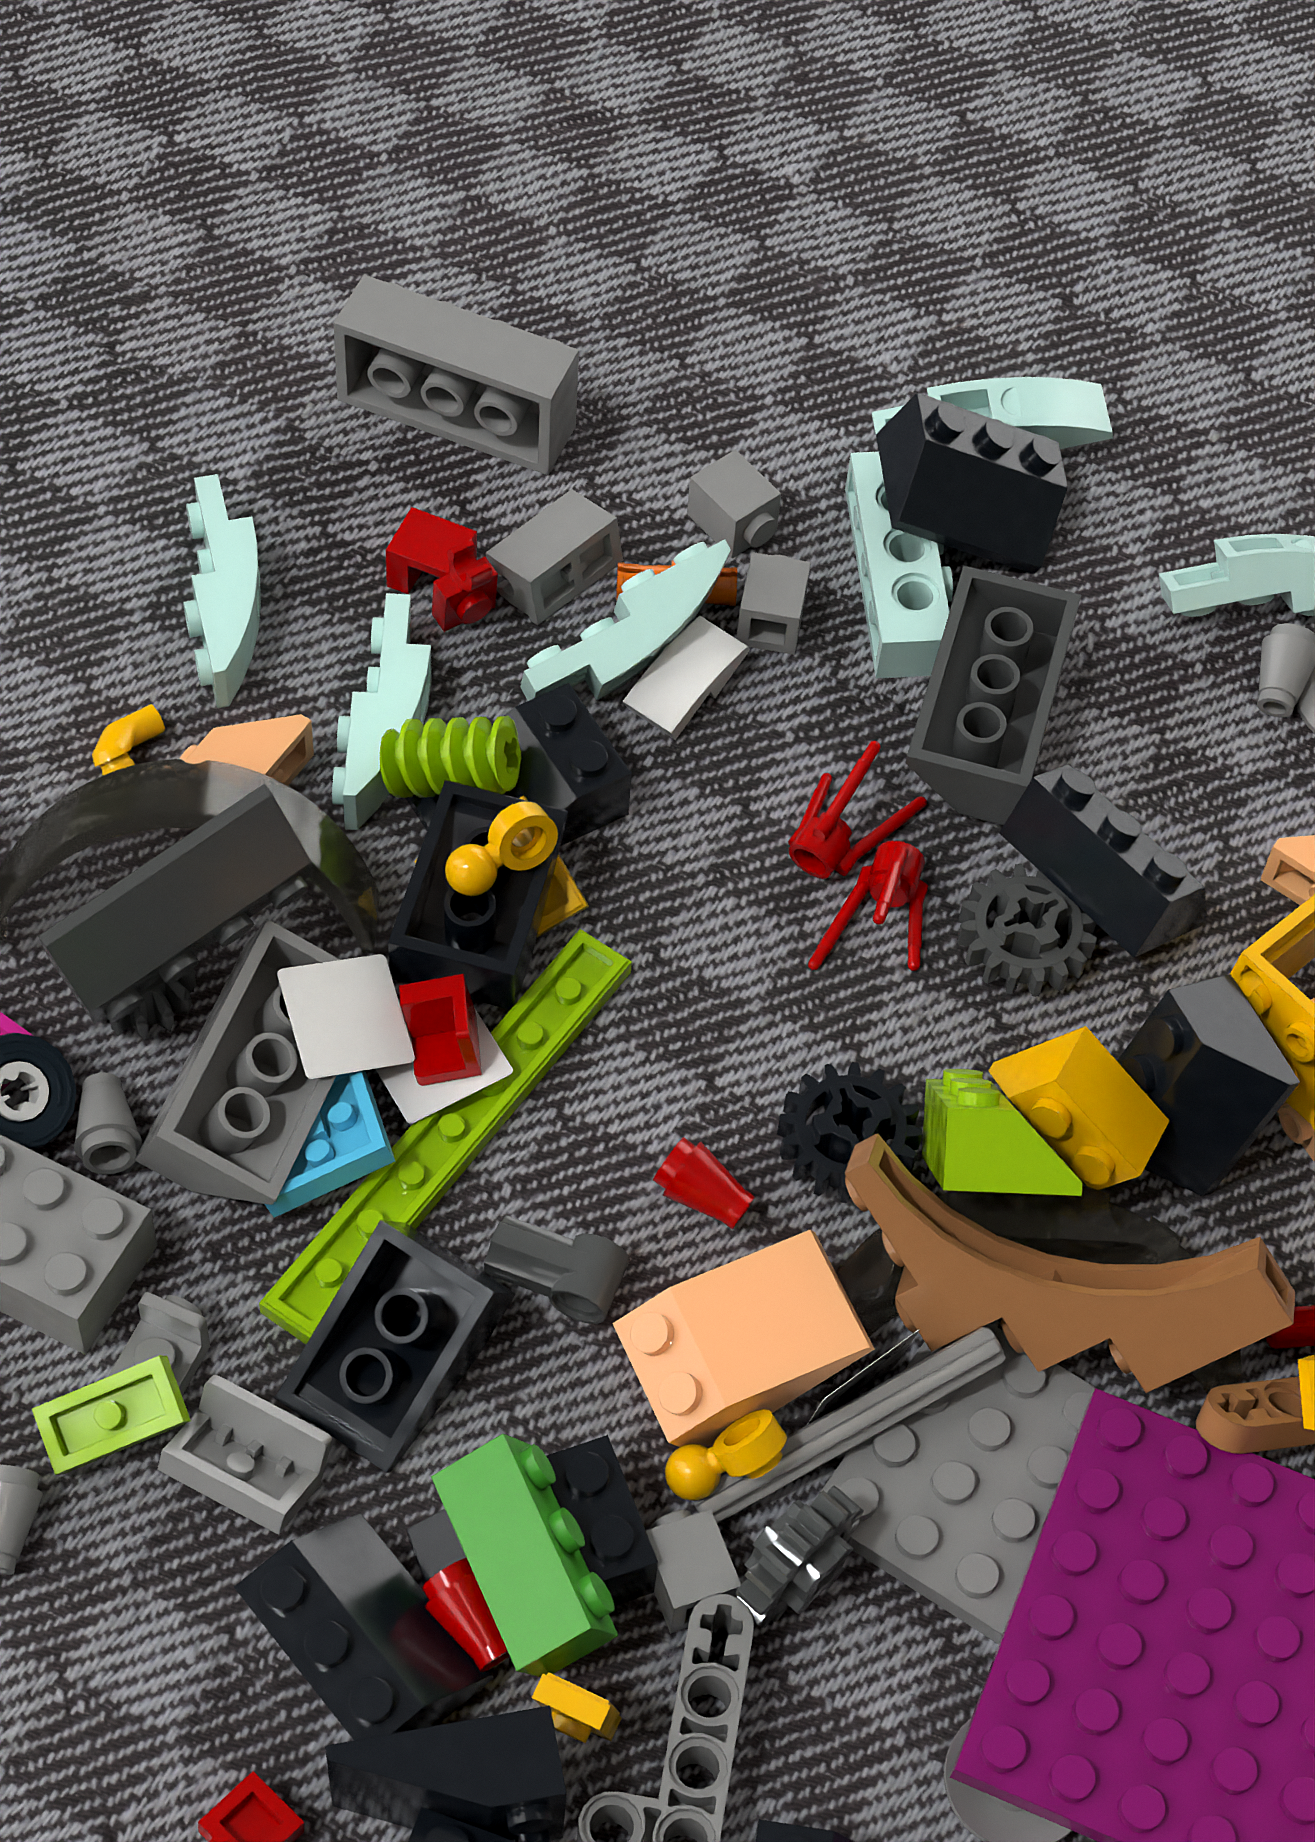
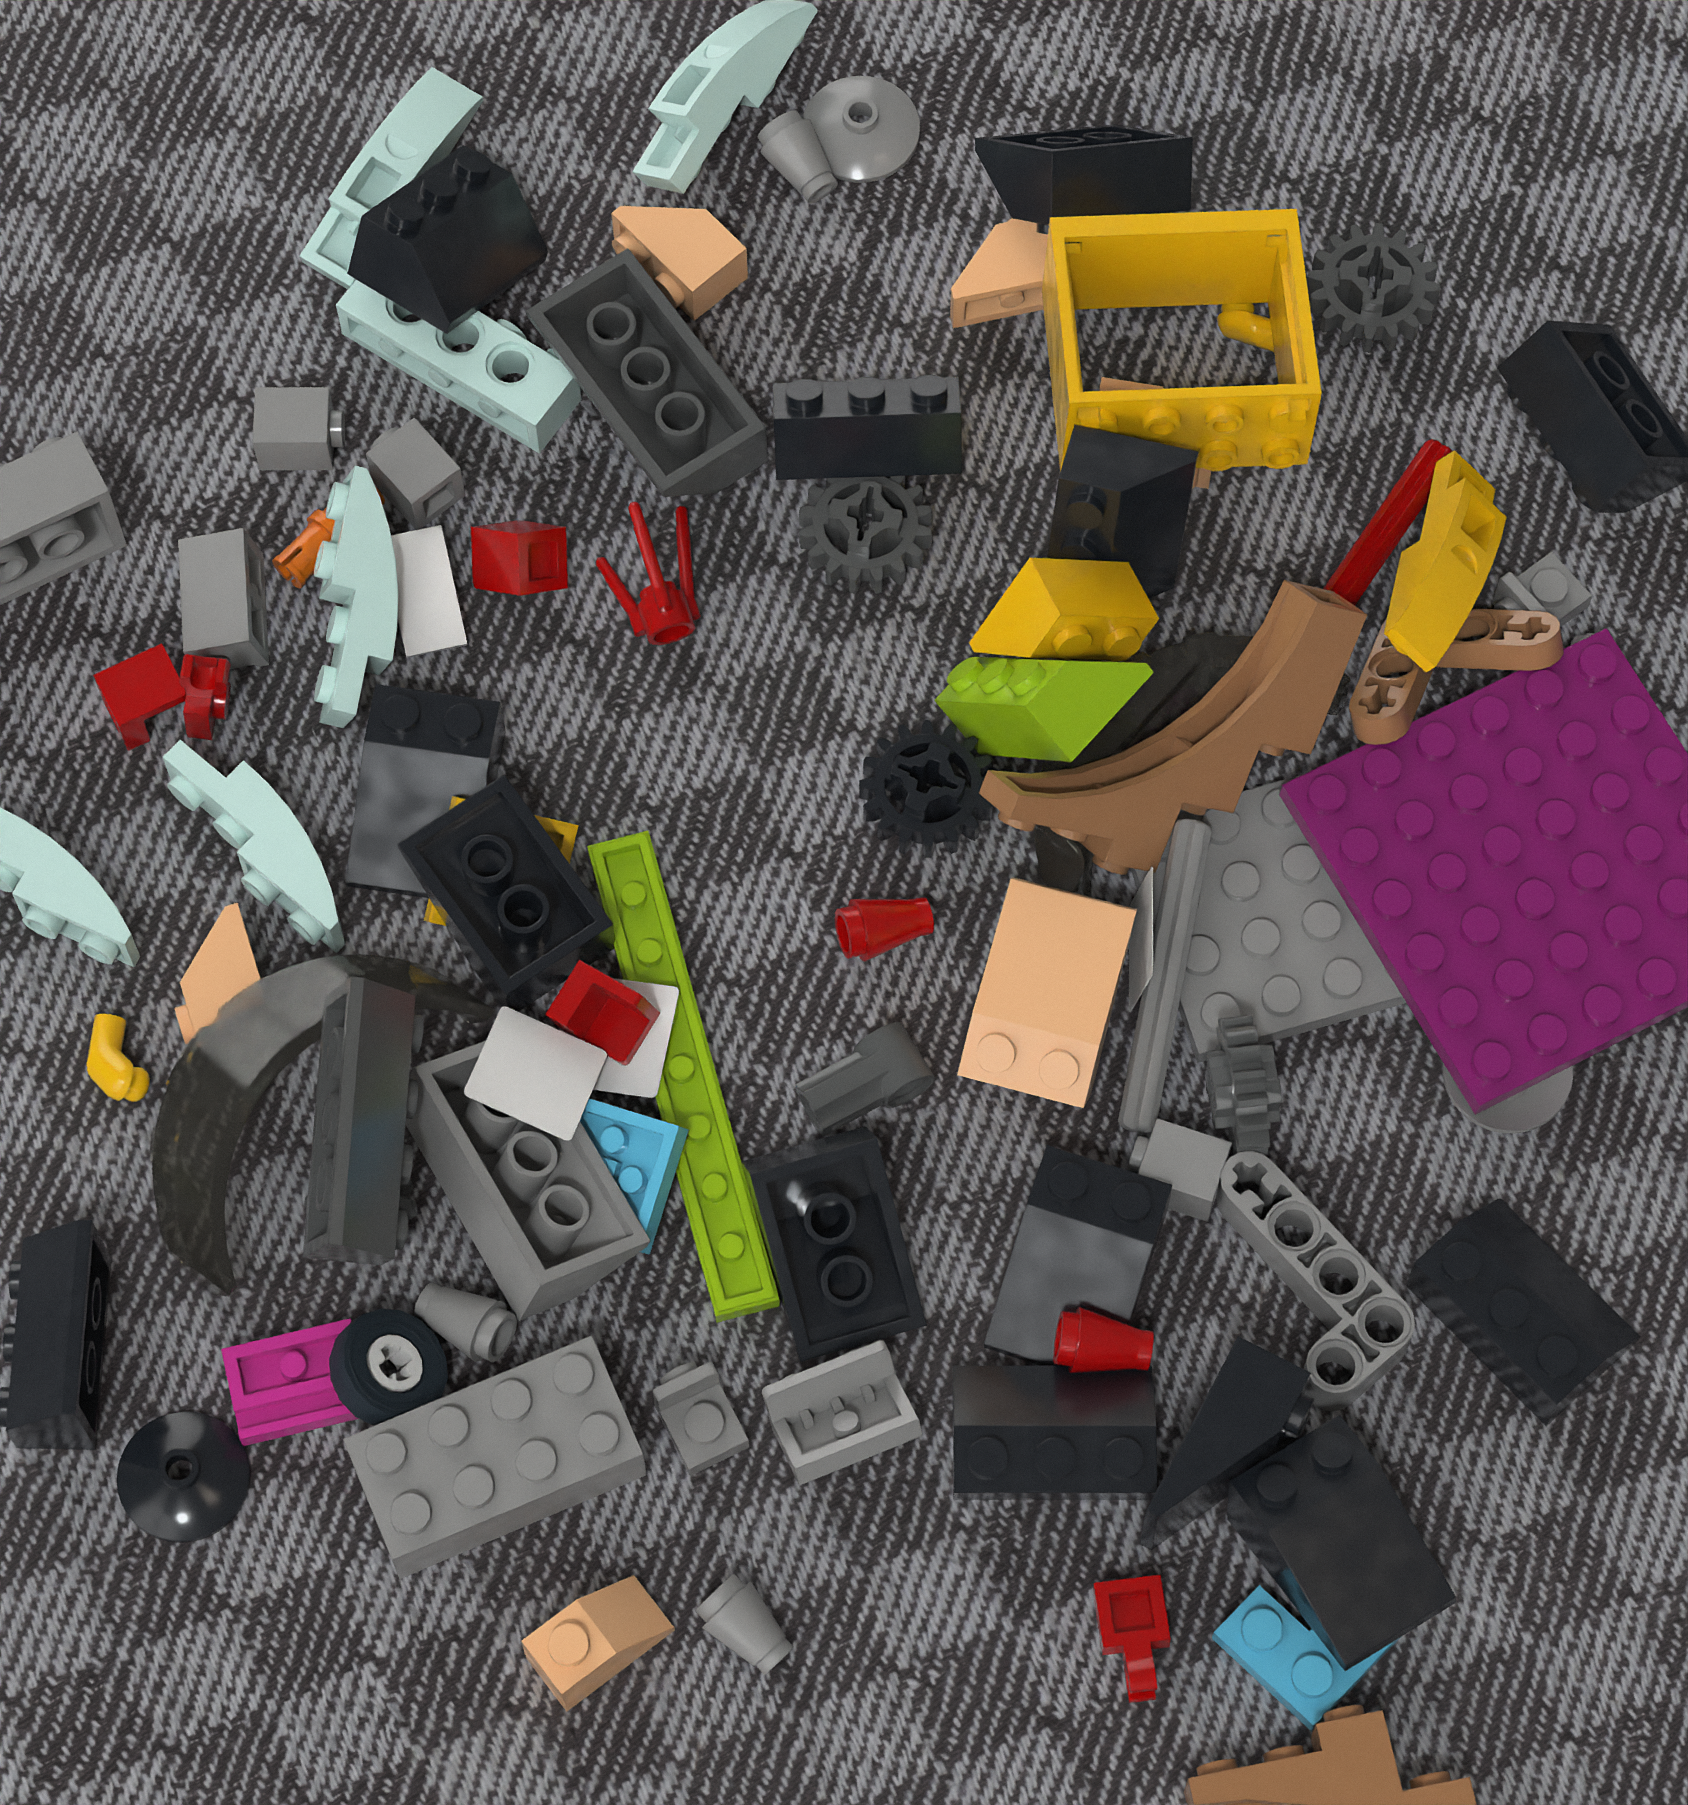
camera: 45 degrees left, 10 degrees up
(111, 1415) = (729, 1487): lime plate -> none
(469, 755) = (374, 823): lime piece -> none
(517, 838) = (510, 830): yellow plate -> none
(526, 1555) = (1099, 1269): bright green brick -> none
(576, 1709) = (1237, 1320): yellow plate -> none
(744, 1448) = (1129, 1058): yellow plate -> none
(773, 717) = (519, 557): none -> red panel
(892, 883) = (742, 587): red plant -> none
(1127, 649) = (683, 253): none -> light nougat slope

